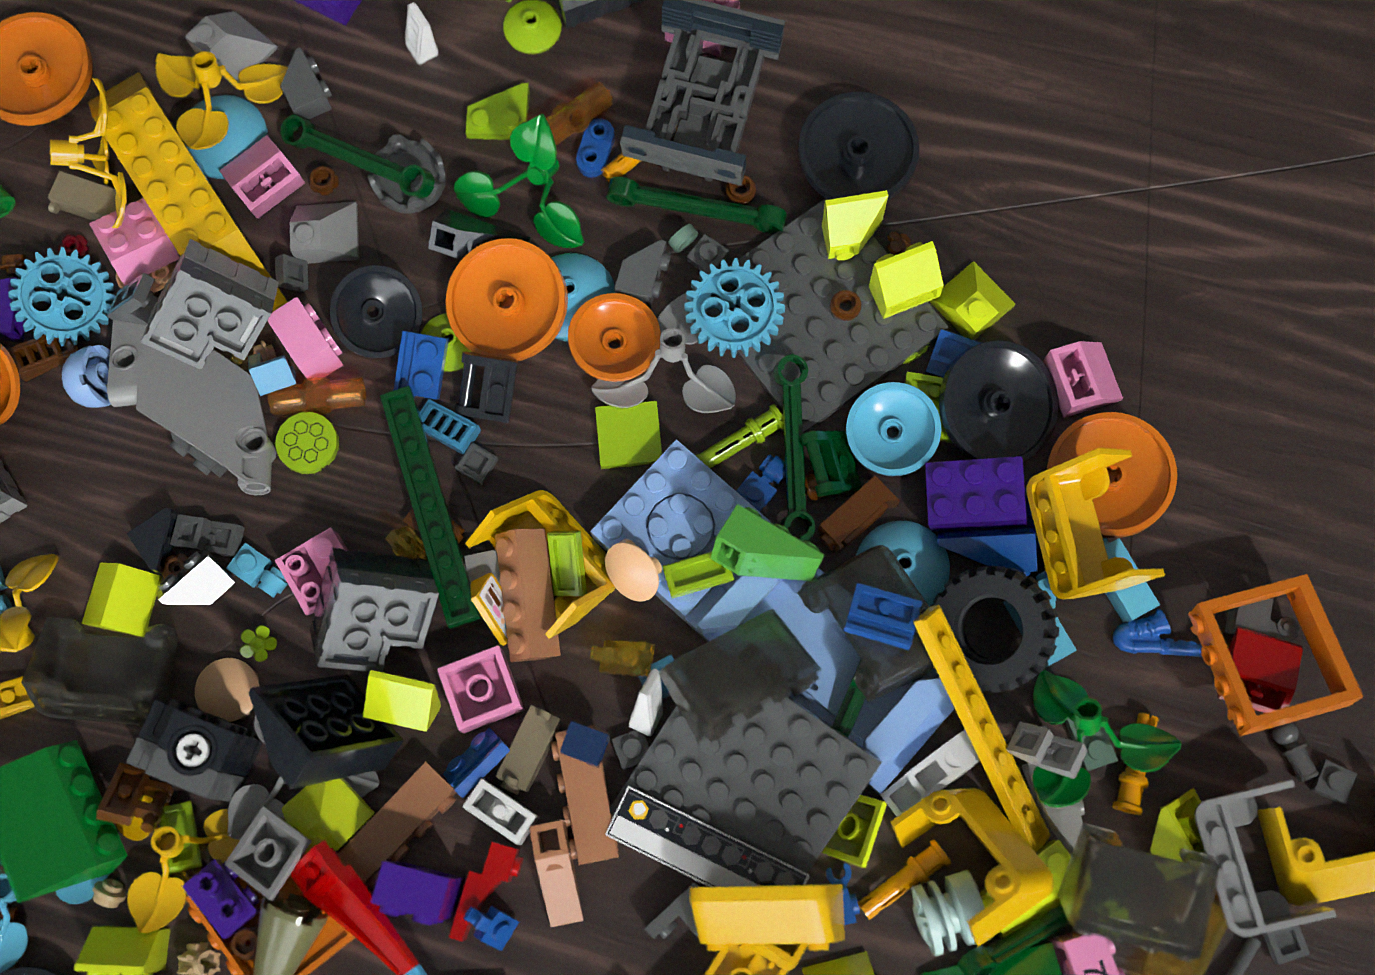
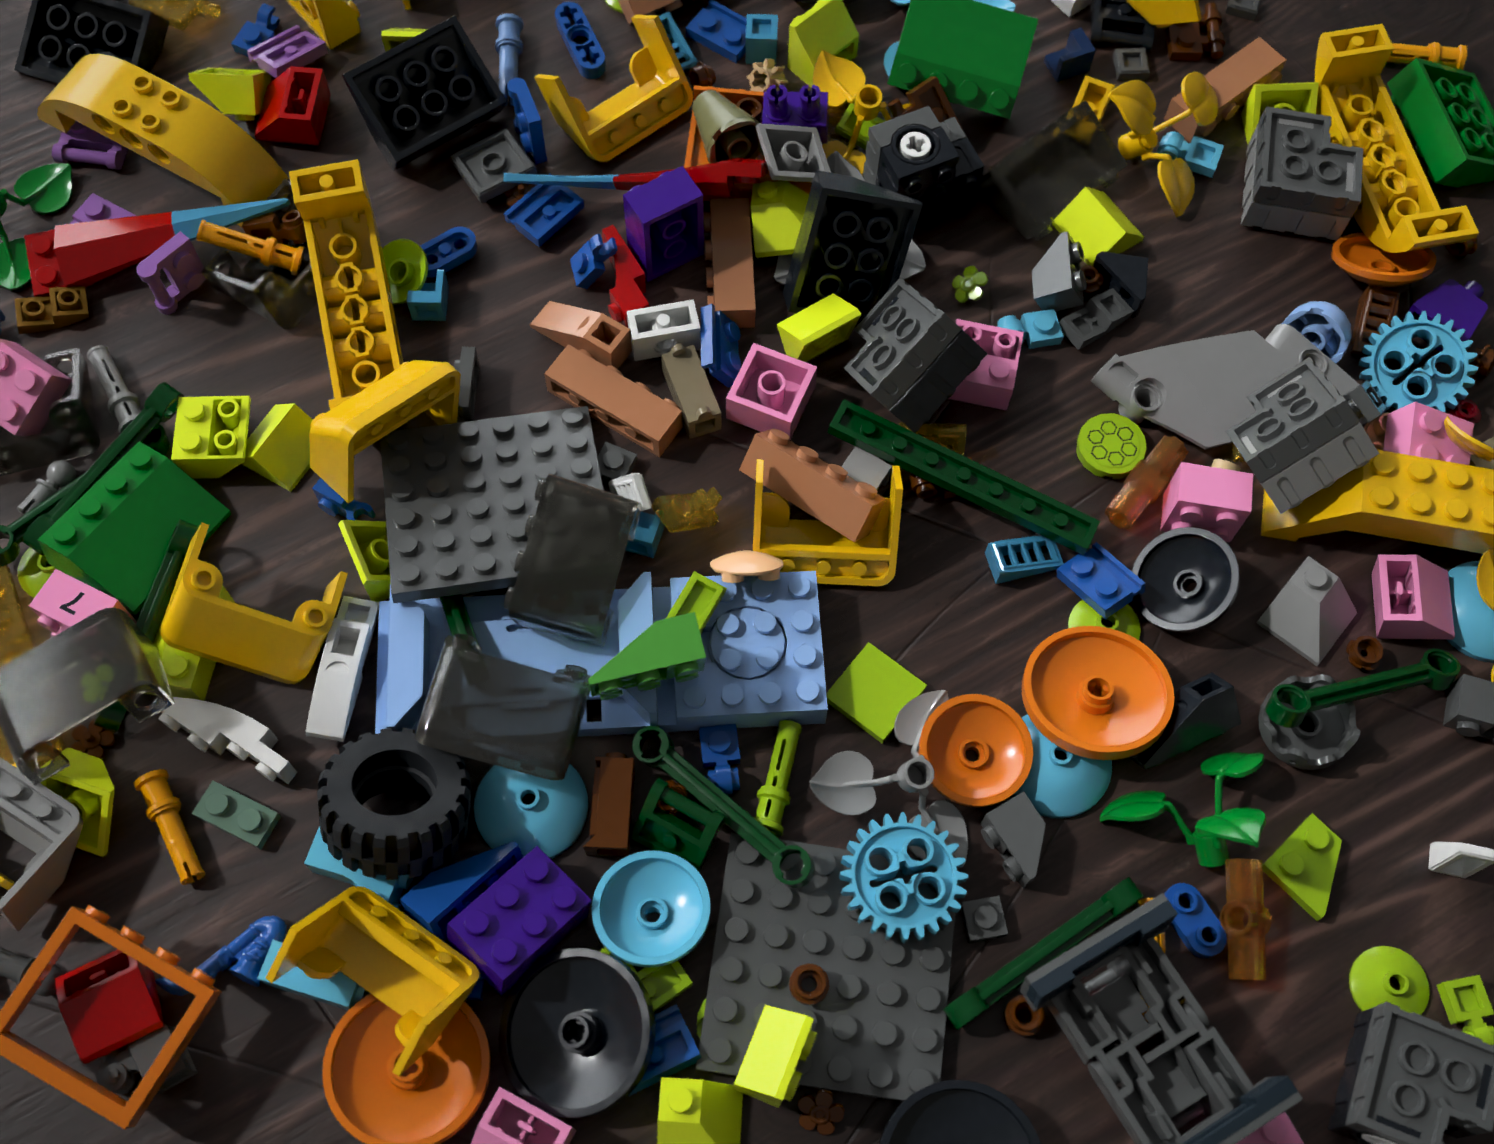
camera: 130 degrees right, 10 degrees down
(109, 893) = (875, 67): tan plate -> none
(225, 688) = (953, 241): light nougat dish -> none
(270, 374) = (1201, 449): panel -> none
(291, 273) = (1287, 551): dark grey plate -> none
(476, 463) = (968, 554): dark grey tile -> none
(488, 599) = (833, 444): slope -> none
(496, 388) = (1021, 617): black plate -> none
(567, 563) = (808, 535): lime tile -> none
(585, 744) = (647, 413): dark blue panel -> none
(683, 238) = (1021, 908): sand green tile -> none
(695, 846) = (477, 428): sticker -> none
(851, 223) = (879, 1060): neon yellow slope -> none
(882, 616) = (494, 697): blue plate -> none
(916, 871) = (298, 573): light orange pin -> none
(946, 912) = (243, 552): light aqua wheel -> none
(981, 726) = (334, 706): yellow tile -> none
(1047, 751) = (257, 740): light grey slope -> none
(1060, 698) = (224, 730): green plant -> none

